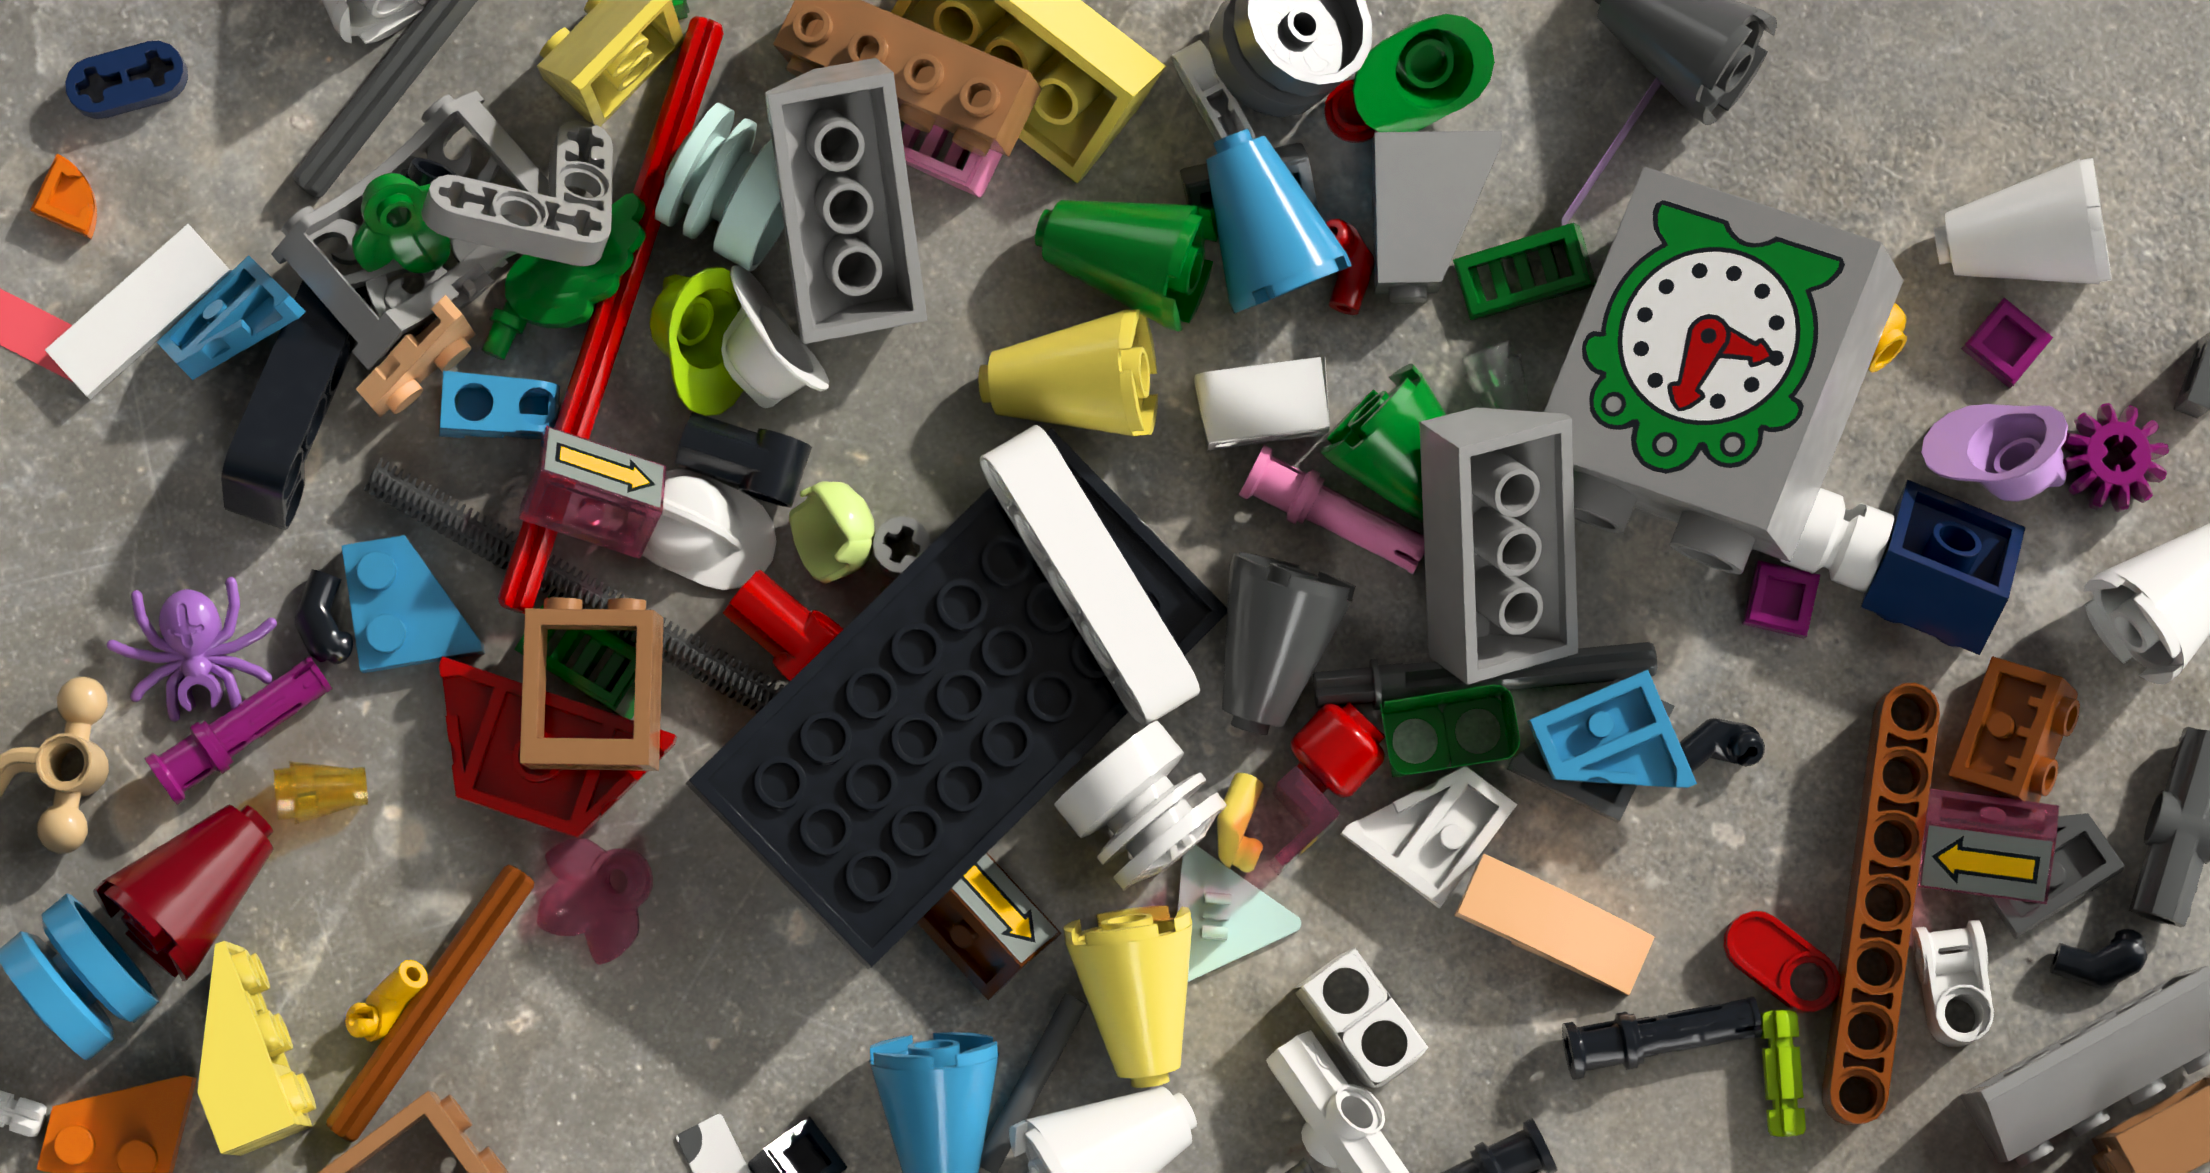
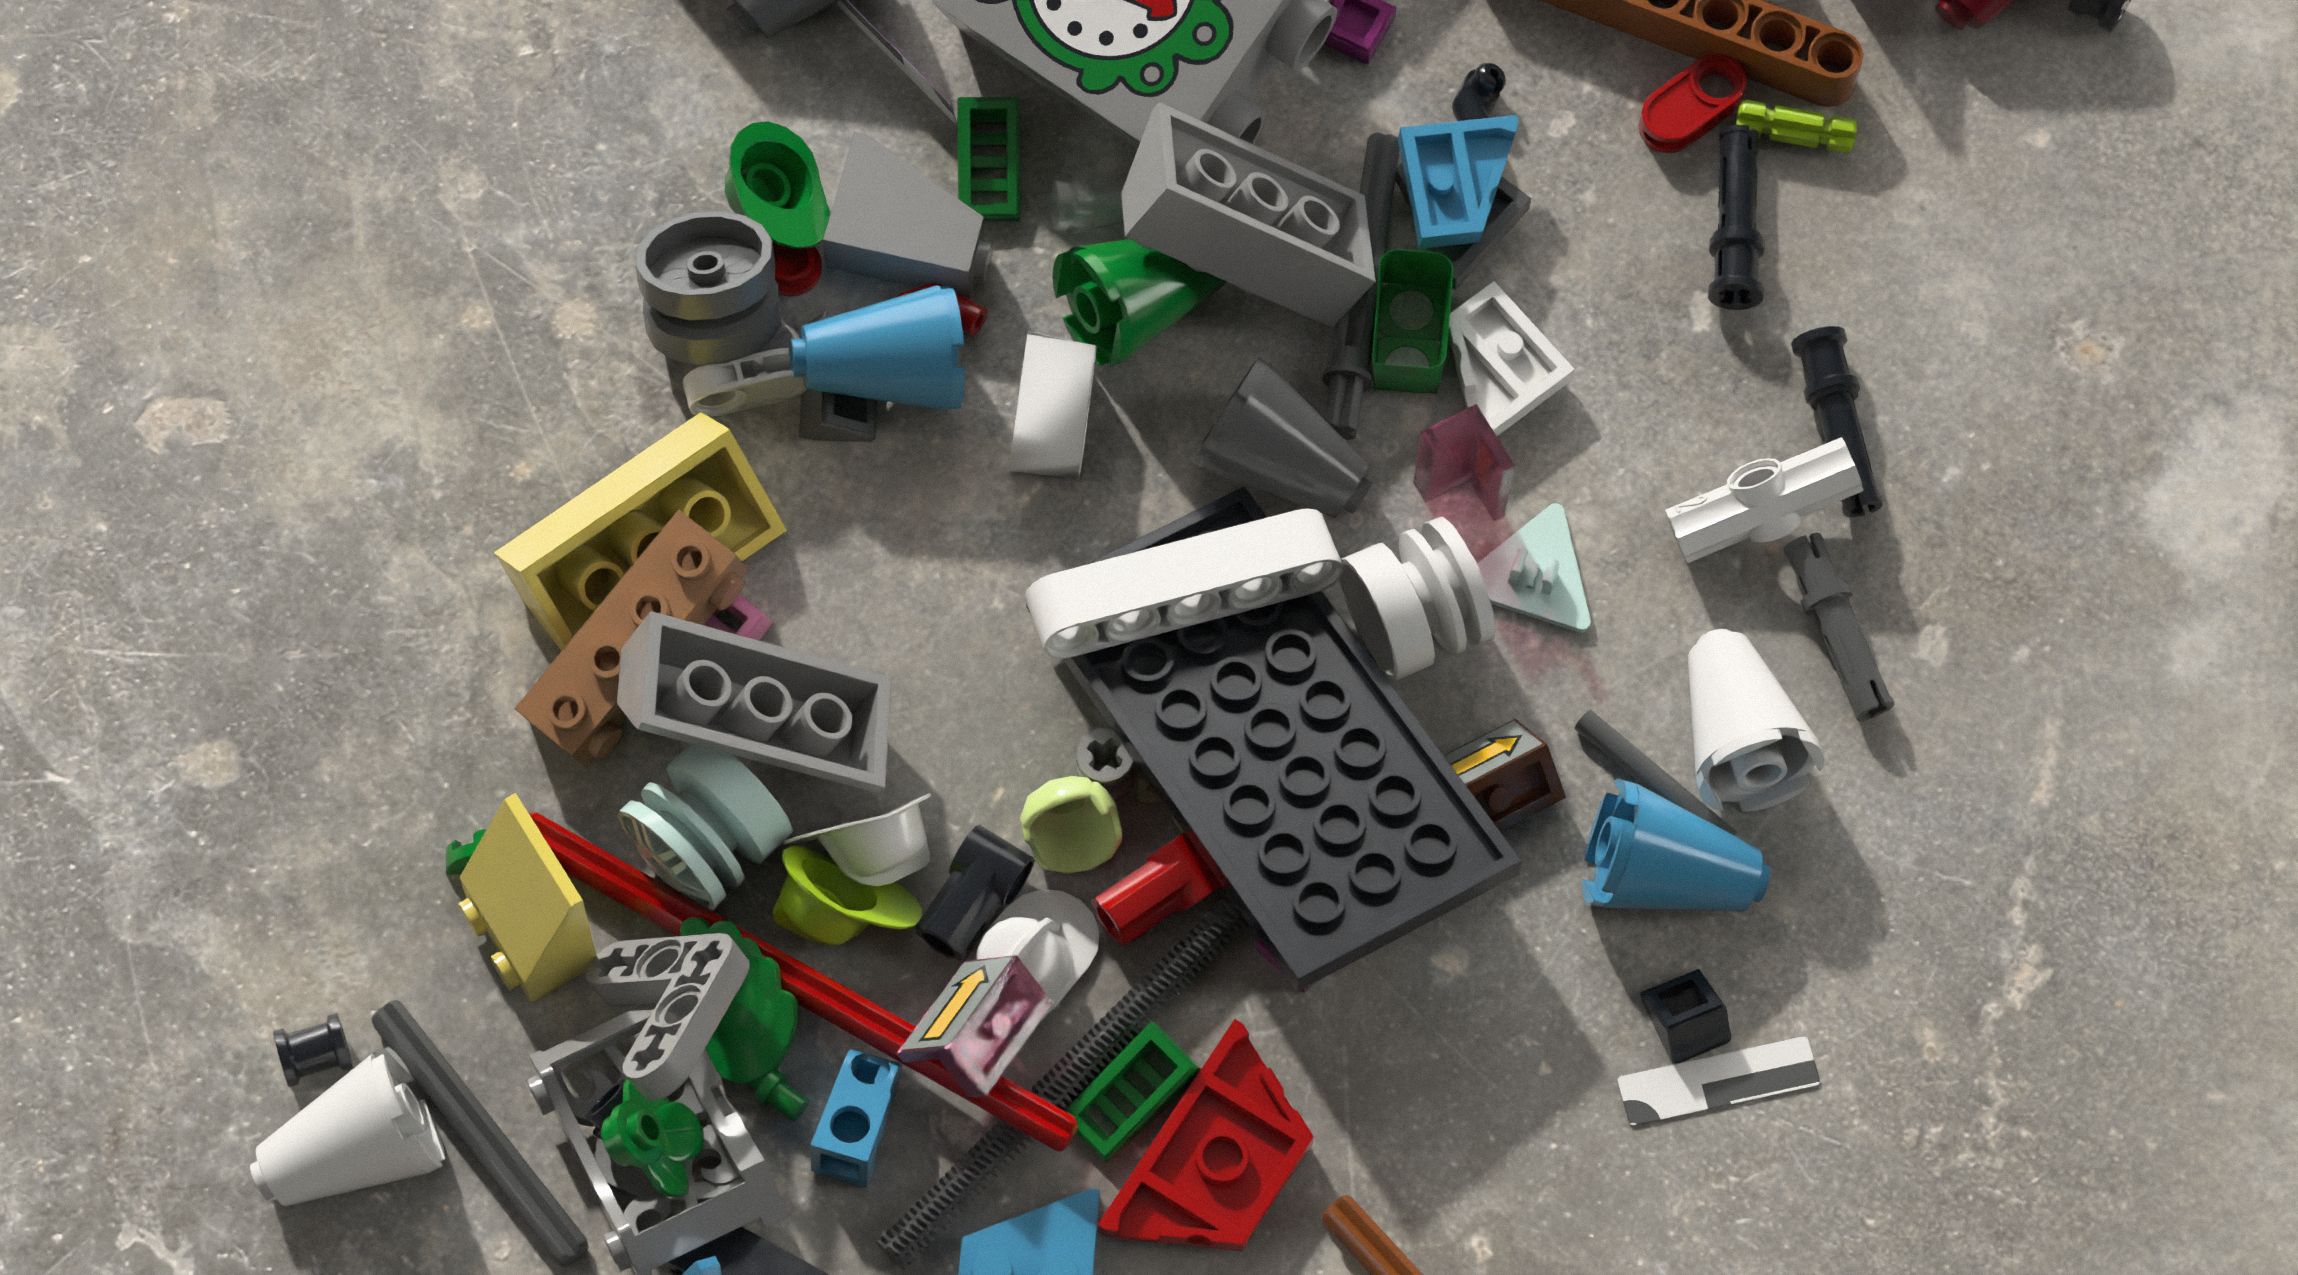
camera: 75 degrees left, 15 degrees down
(440, 345) = (783, 1153): light nougat wing -> none
(587, 901) = (1375, 1150): clear pink plate -> none
(590, 753) = (1091, 1080): medium nougat window -> none
(1079, 376) = (982, 560): light yellow cone -> none
(1134, 253) = (874, 483): green cone -> none
(1136, 986) = (1586, 649): light yellow cone -> none
(1233, 821) = (1477, 533): light yellow arm -> none
(1307, 498) = (1154, 393): bright pink pin -> none
(1338, 749) = (1395, 416): red head -> none
(1356, 1023) = (1665, 489): white piece -> none
(1554, 924) = (1611, 282): light nougat slope -> none

